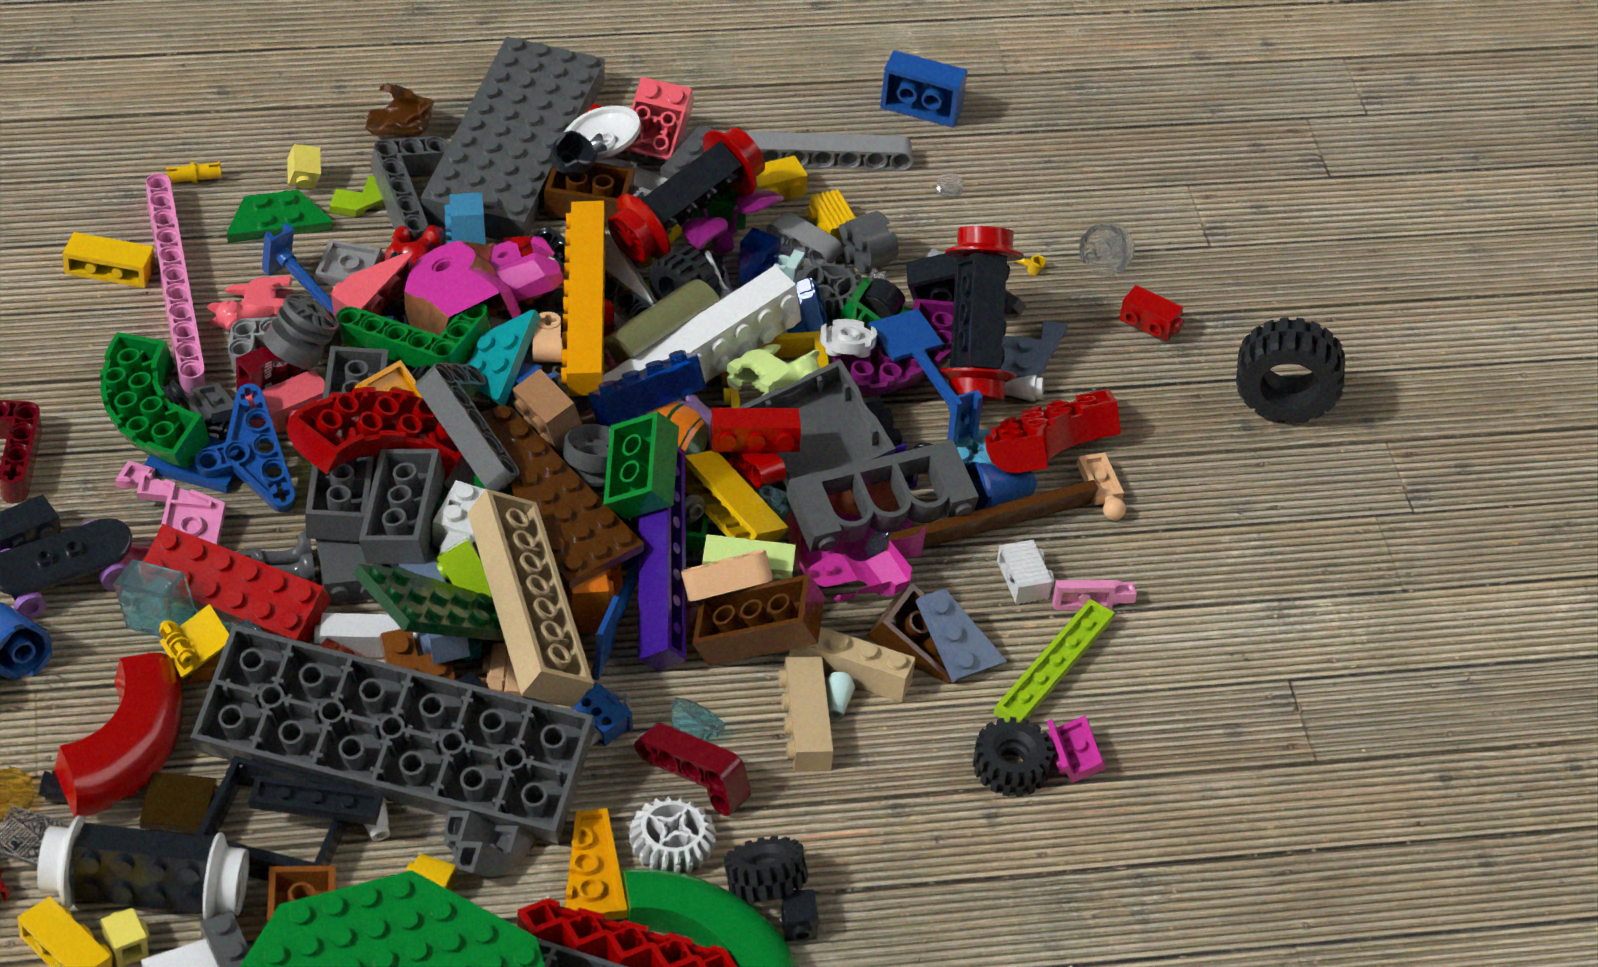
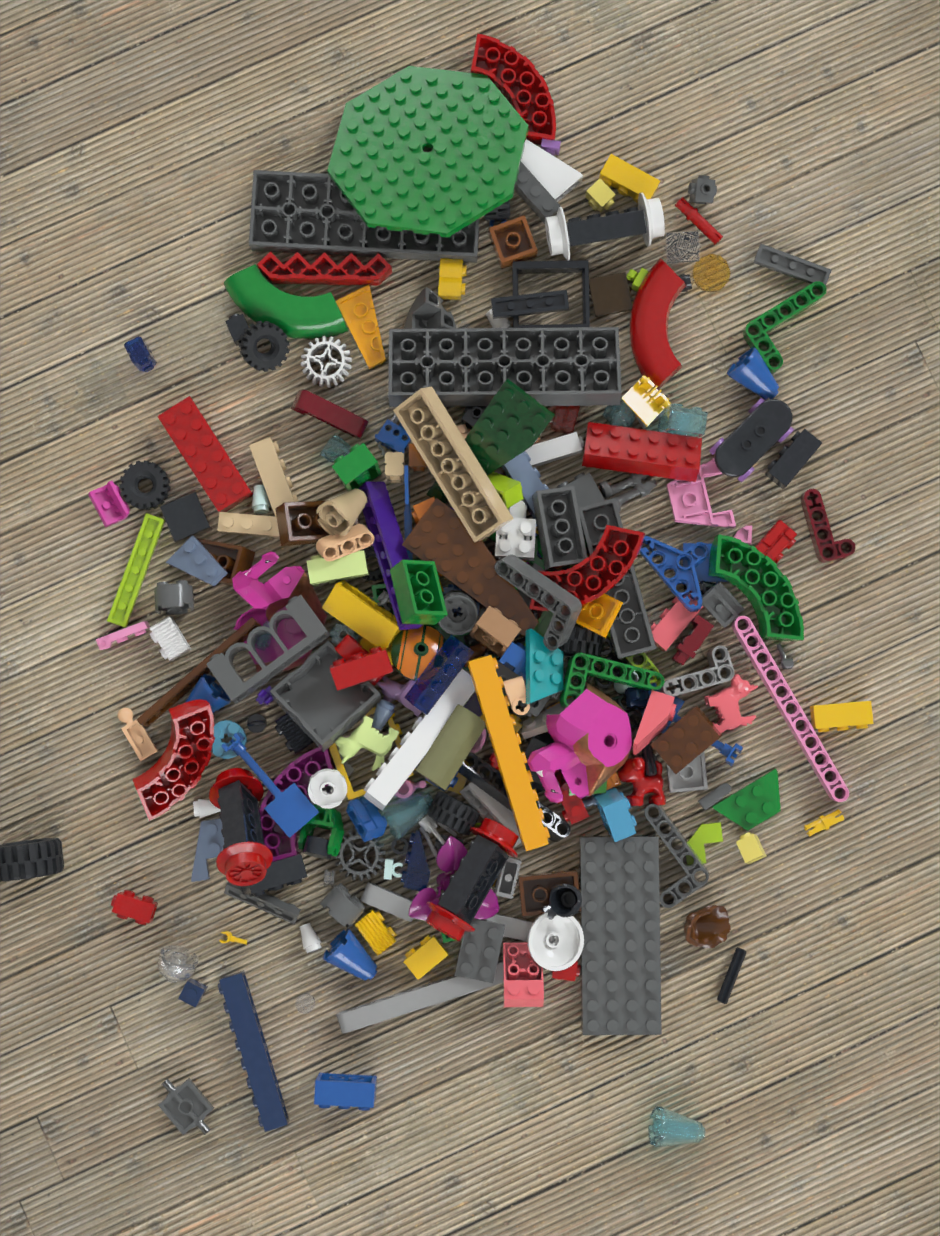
camera: 170 degrees right, 40 degrees up
(94, 450) = (776, 541): none -> red brick
(123, 808) = (636, 278): none -> lime tile
(150, 329) = (785, 663): none -> dark grey hand
(175, 393) = (742, 595): black bush -> none
(301, 331) = (681, 658): dark grey wheel -> none
(318, 232) = (714, 796): none -> dark grey bar
(319, 266) = (686, 739): none -> reddish brown brick
(390, 76) = (731, 975): none -> black axle
(616, 662) = (394, 467): none -> tan brick
(676, 651) = (356, 467): none -> green brick
(713, 606) = (341, 512): none -> tan cone
(742, 394) = (383, 712): none -> sand blue cone
(873, 194) = (350, 956): none -> blue cone
(906, 767) = (205, 455): none -> red brick
(923, 232) = (309, 938): none -> white cone
(960, 704) = (185, 517): none -> black tile
(972, 912) = (140, 354): none -> clear blue brick
(1005, 604) = (174, 598): none -> dark grey brick
(1030, 158) = (254, 1051): none -> dark blue brick
(1092, 214) = (193, 992): none -> dark blue brick
(1132, 133) = (186, 1106): none -> dark grey plate

